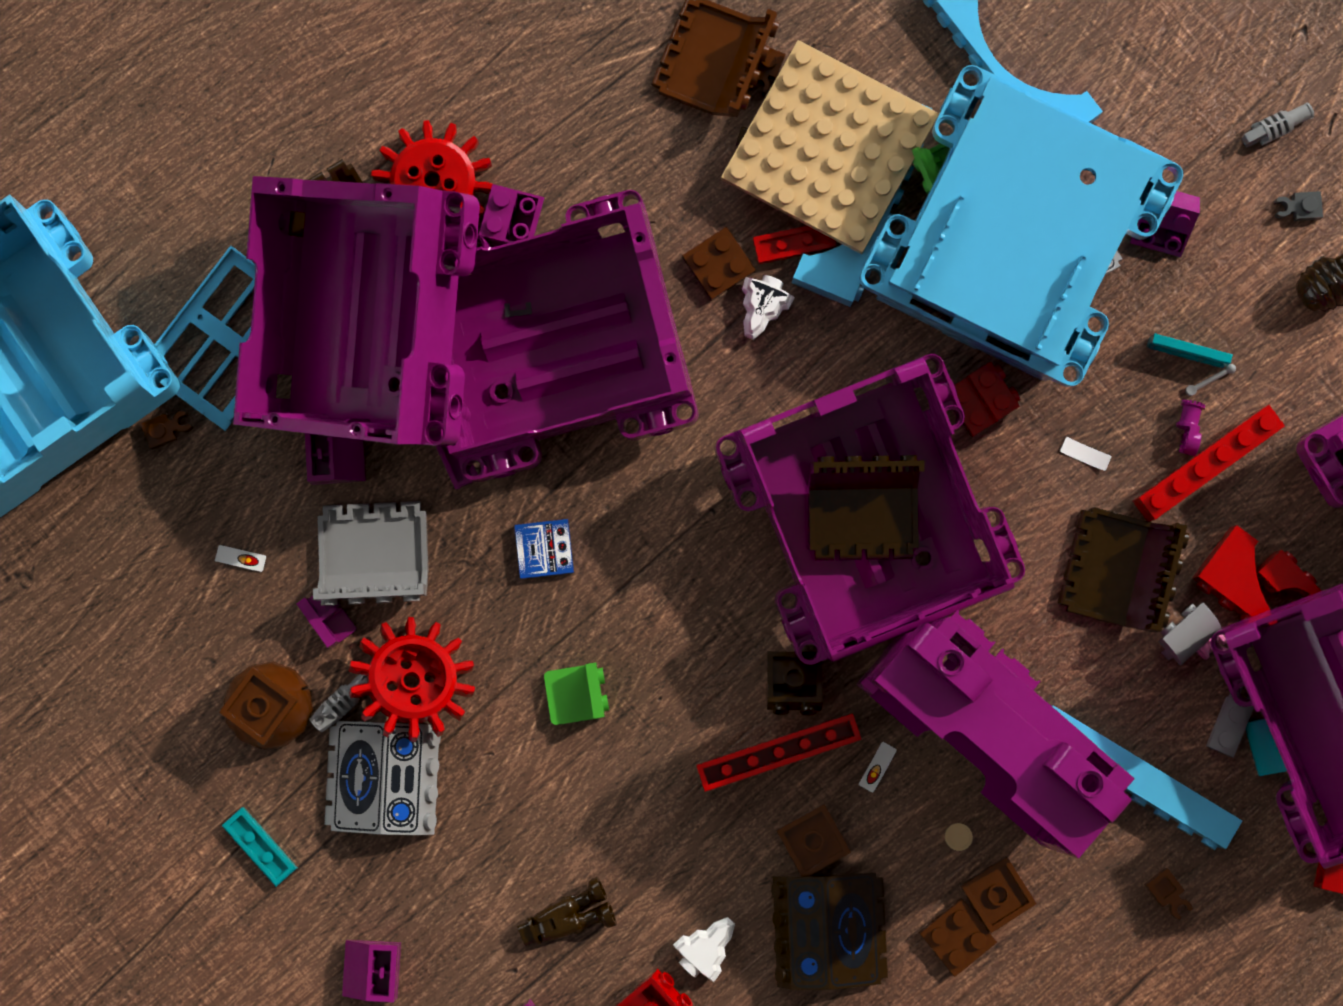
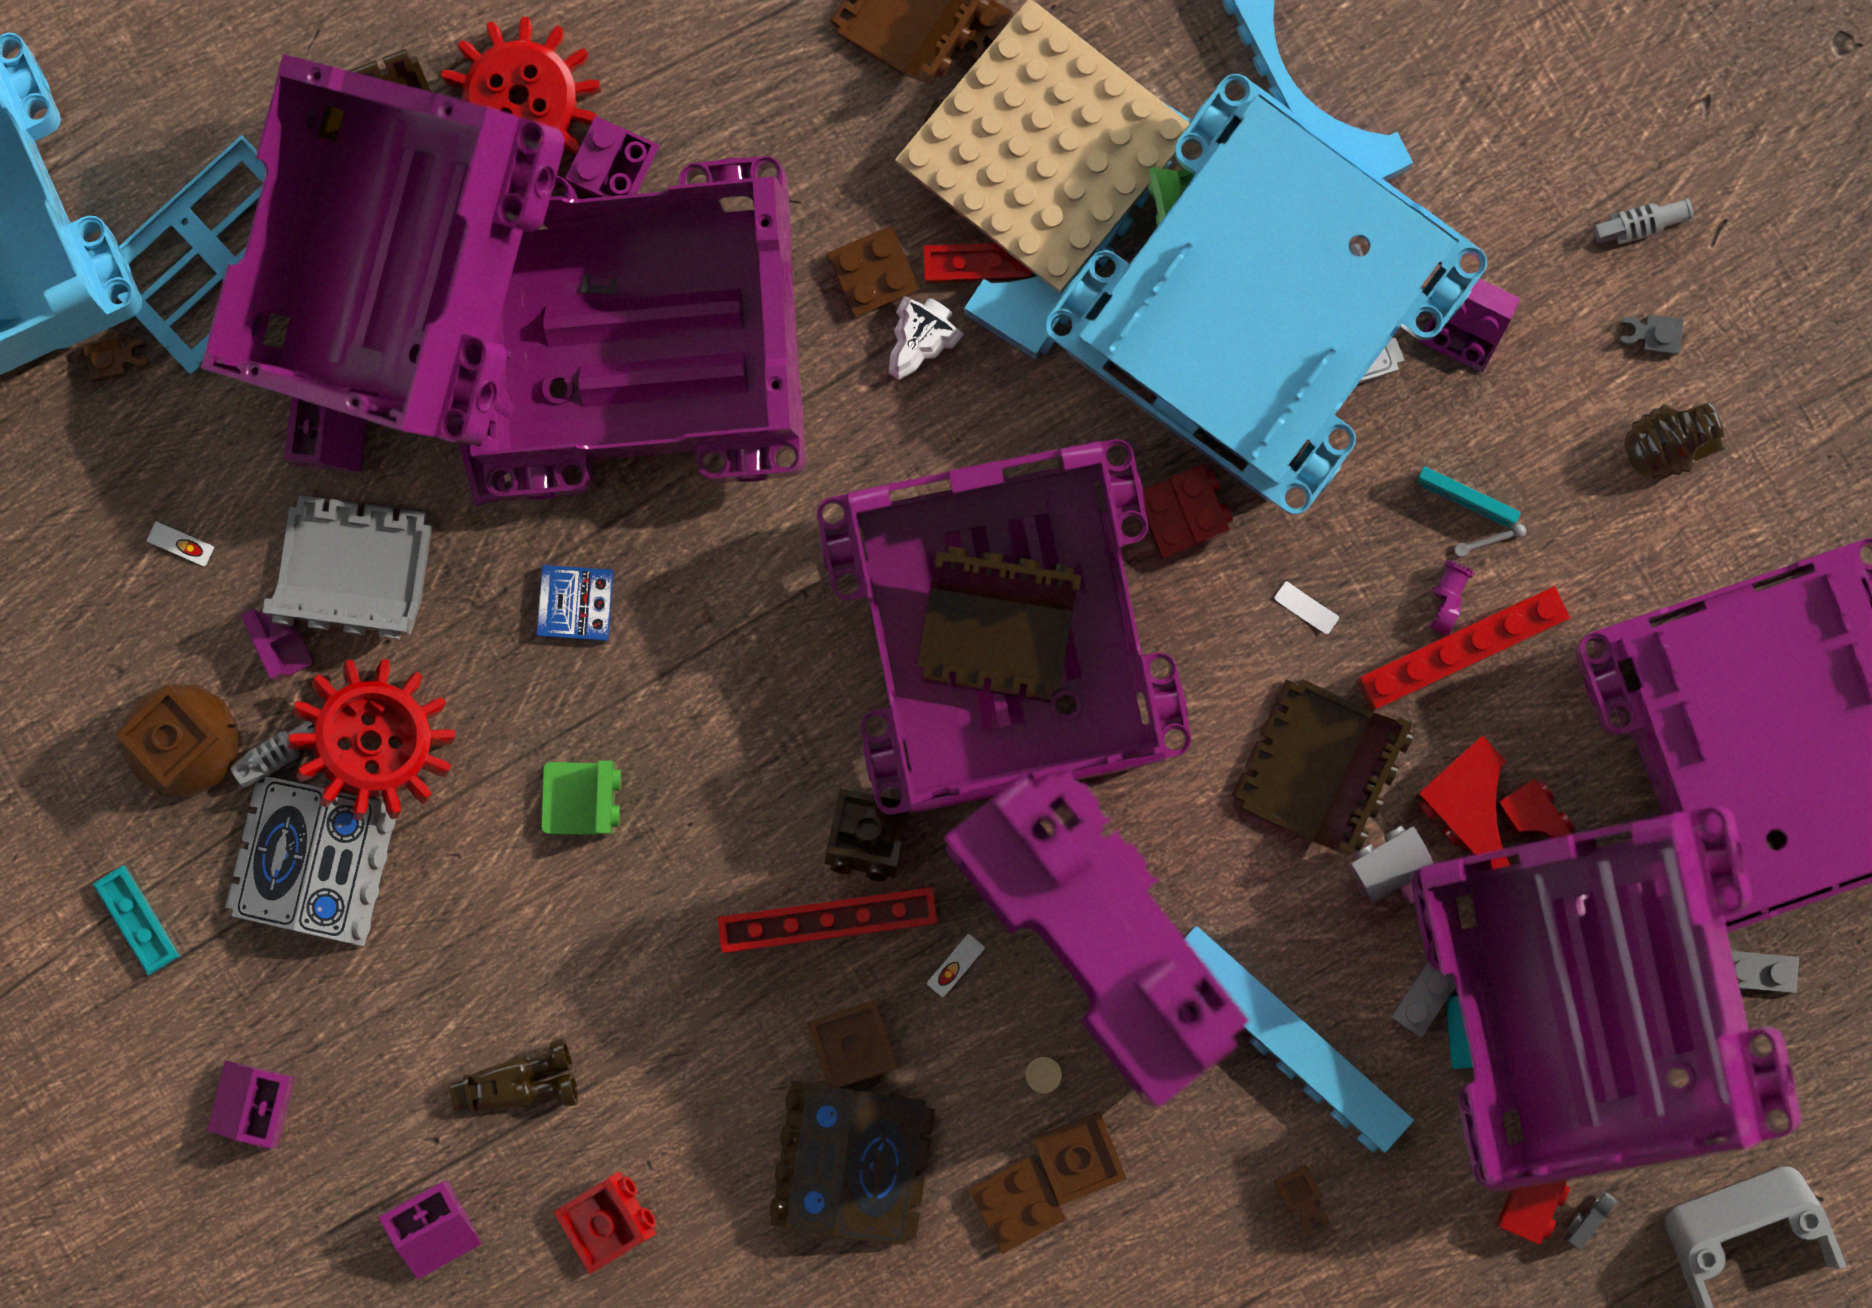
camera: 15 degrees right, 0 degrees up
(705, 949) = (686, 1158): white rock -> none

